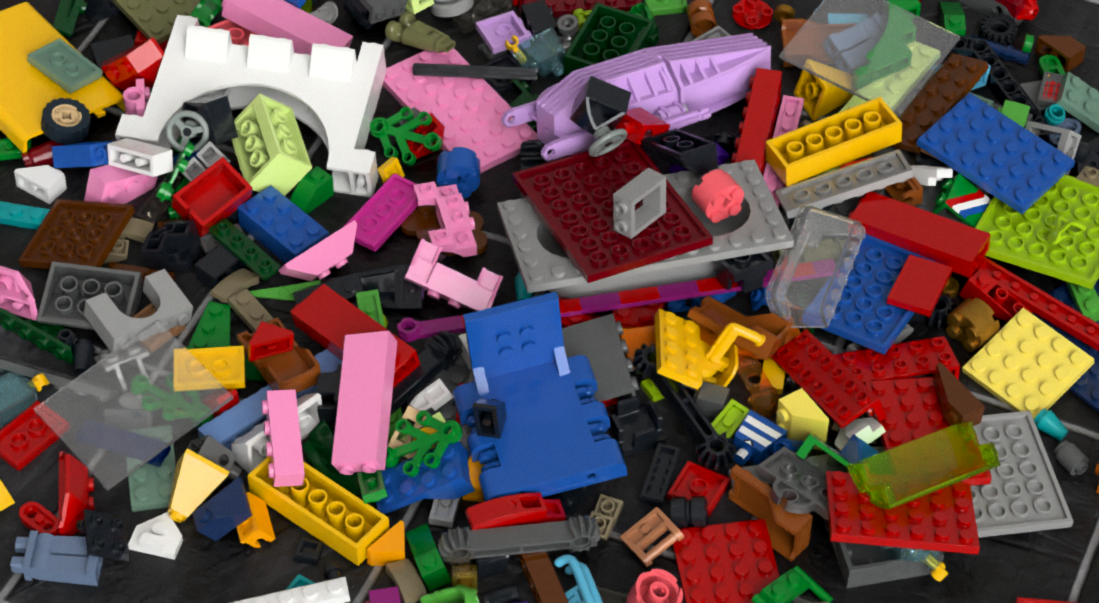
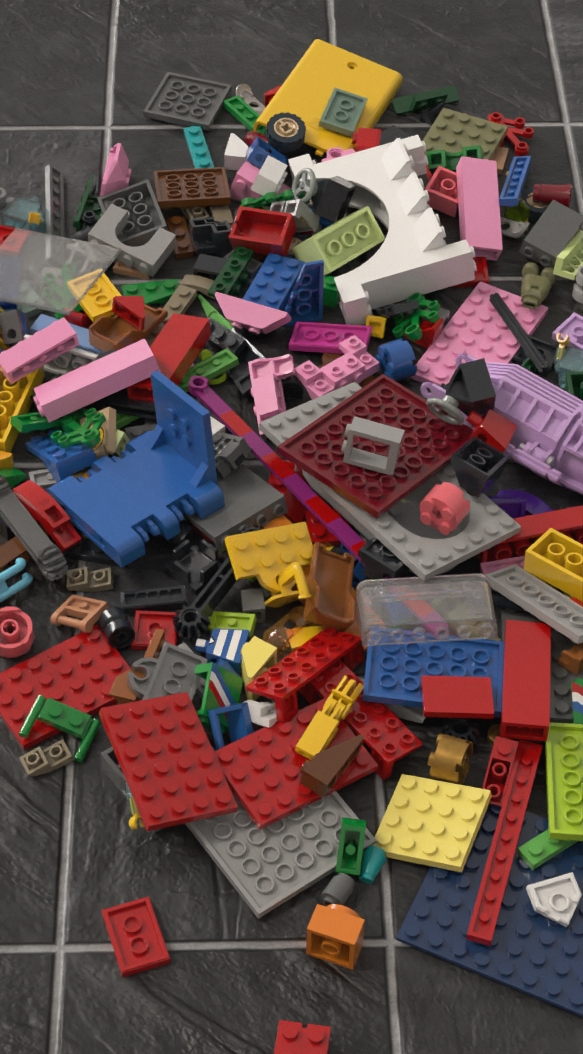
camera: 65 degrees right, 0 degrees up
(329, 204) = (307, 295): none -> blue wedge
(389, 141) = (392, 309): none -> black plate
(432, 396) = (141, 426): white plate -> none
(489, 417) = (116, 450): black slope -> none
(910, 388) = (325, 723): none -> yellow arm
(923, 465) = (224, 756): clear neon green cylinder -> none
(1036, 424) = (351, 846): none -> green slope

